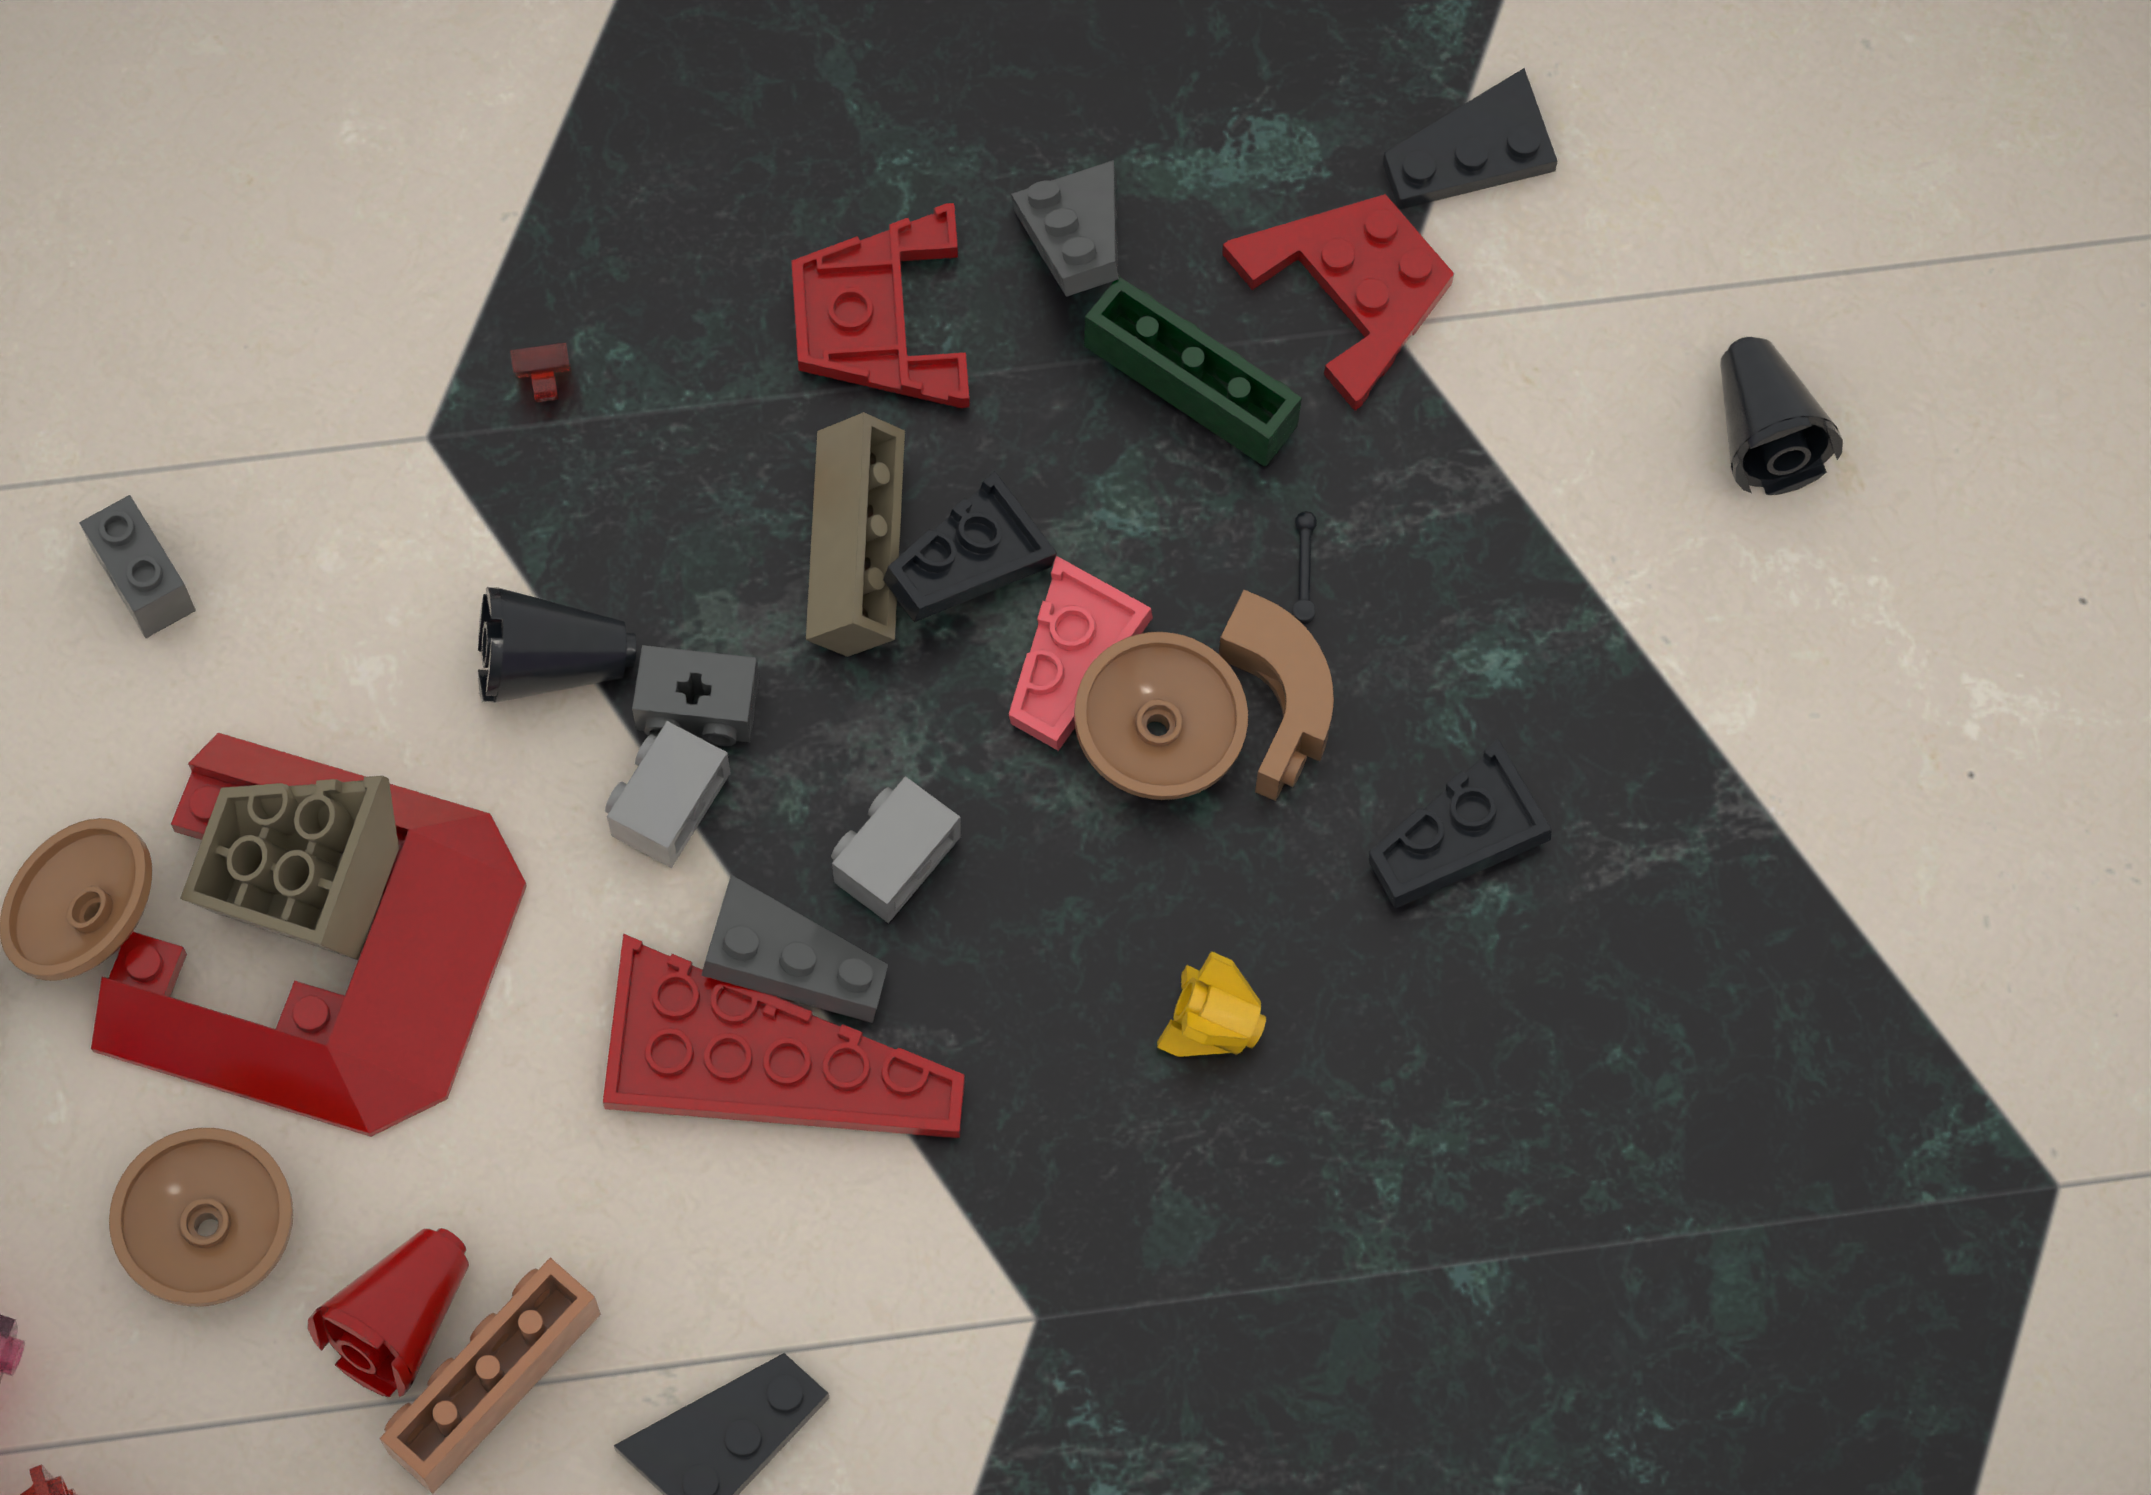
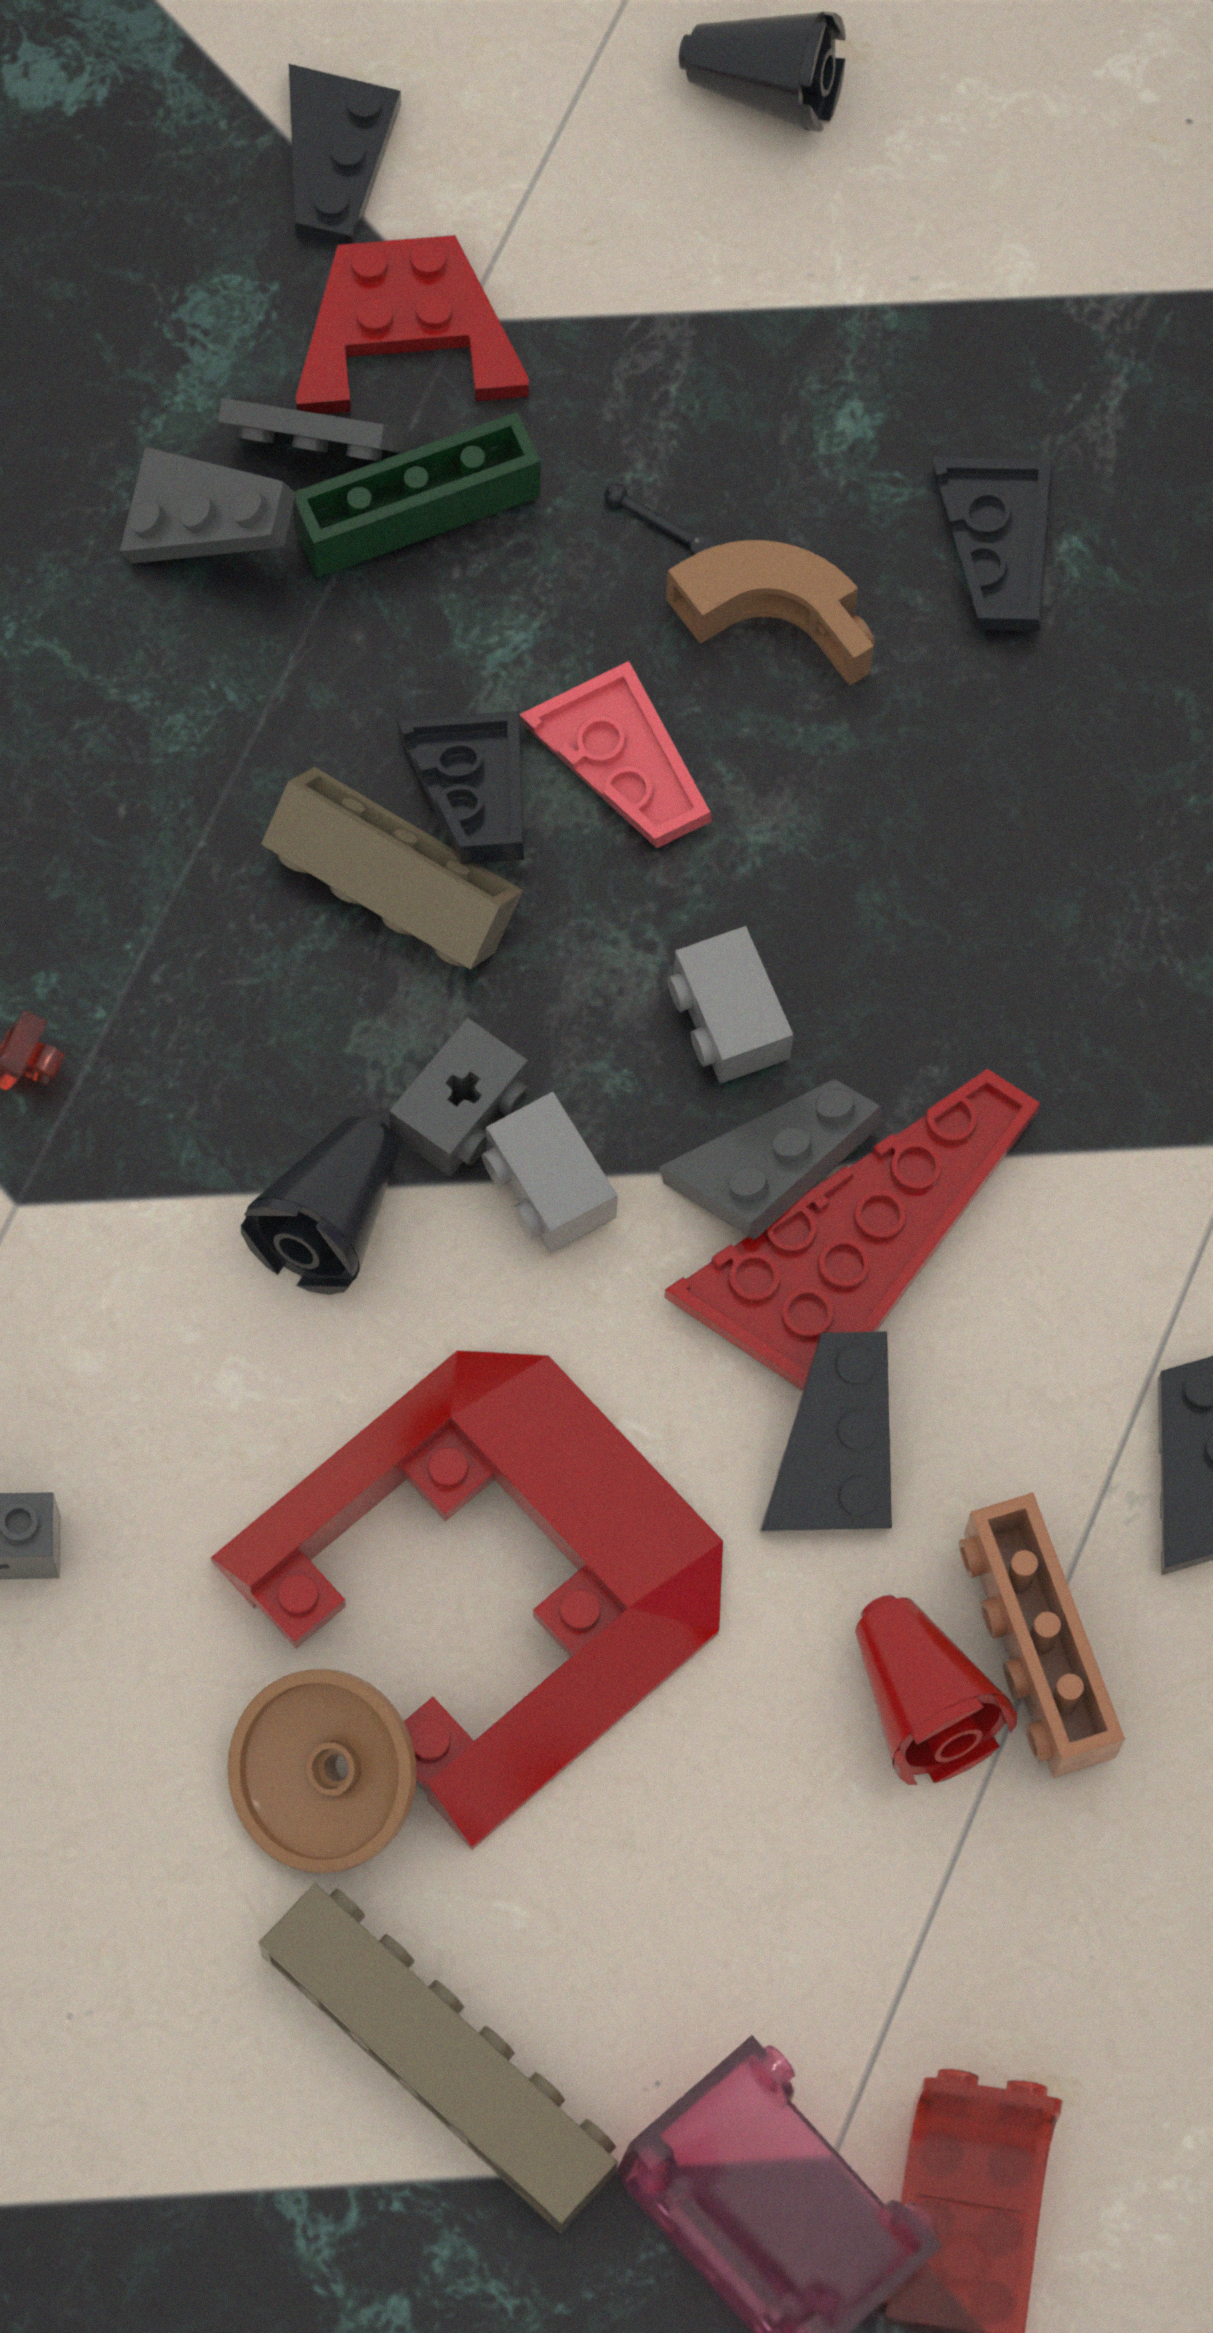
camera: 60 degrees left, 0 degrees up
(178, 1187) = (736, 1775): medium nougat dish -> none
(299, 859) = (423, 1531): dark tan wedge -> none
(571, 1133) = (839, 1441): none -> black wing
(854, 312) = (155, 751): red wing -> none
(1166, 682) = (752, 680): medium nougat dish -> none
(1201, 269) = (315, 430): none -> dark grey wing
(1213, 1012) = (1055, 829): yellow brick -> none

